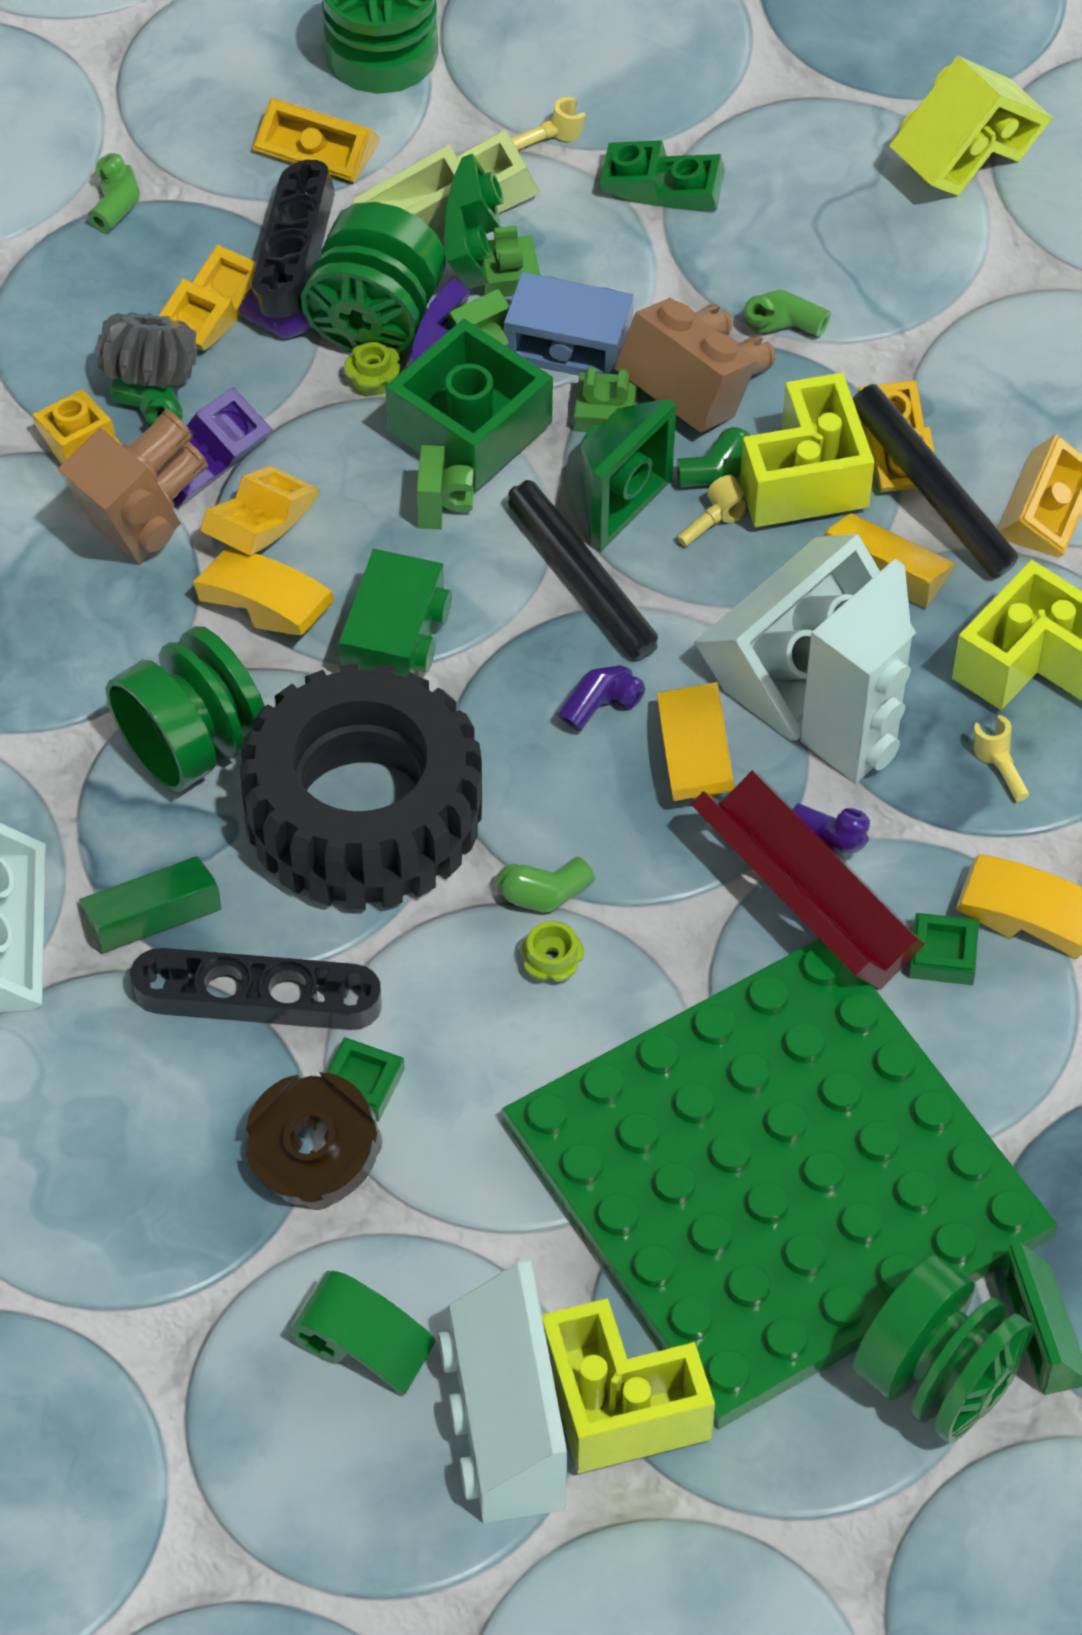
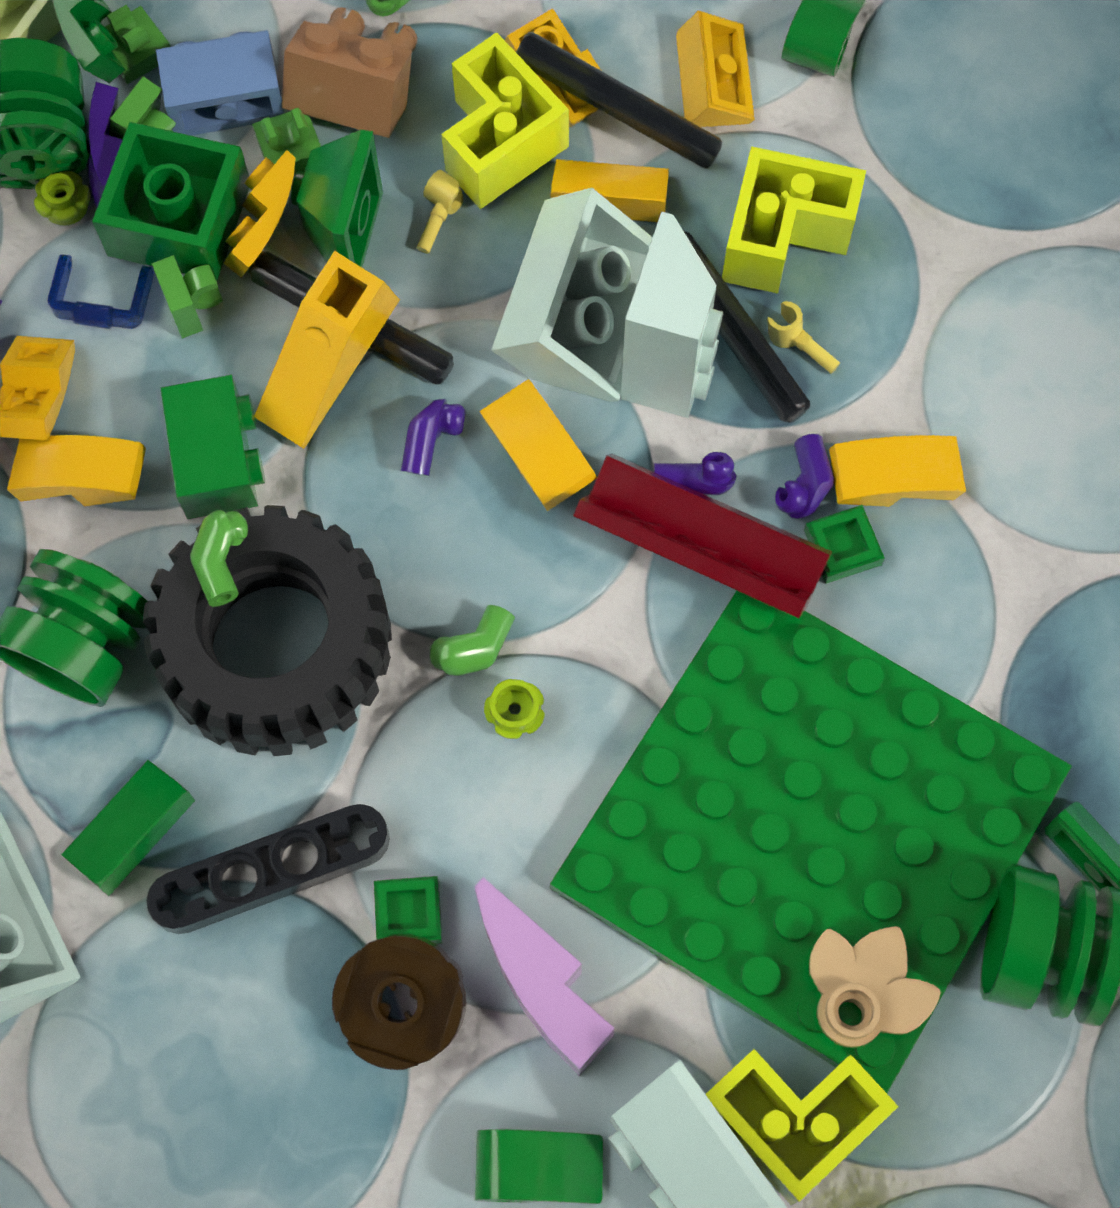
camera: 25 degrees left, 15 degrees up
(340, 682) = (210, 551): none -> bright green arm
(354, 477) = (97, 314): none -> clear blue piece
(452, 1183) = (540, 979): none -> lavender slope
(540, 574) = (324, 347): none -> yellow slope
(555, 437) = (266, 201): none -> yellow slope
(721, 461) = (421, 161): green arm -> none
(753, 1303) = (873, 980): none -> tan plate
(943, 721) = (754, 350): none -> black axle
(946, 880) = (816, 479): none -> dark purple arm

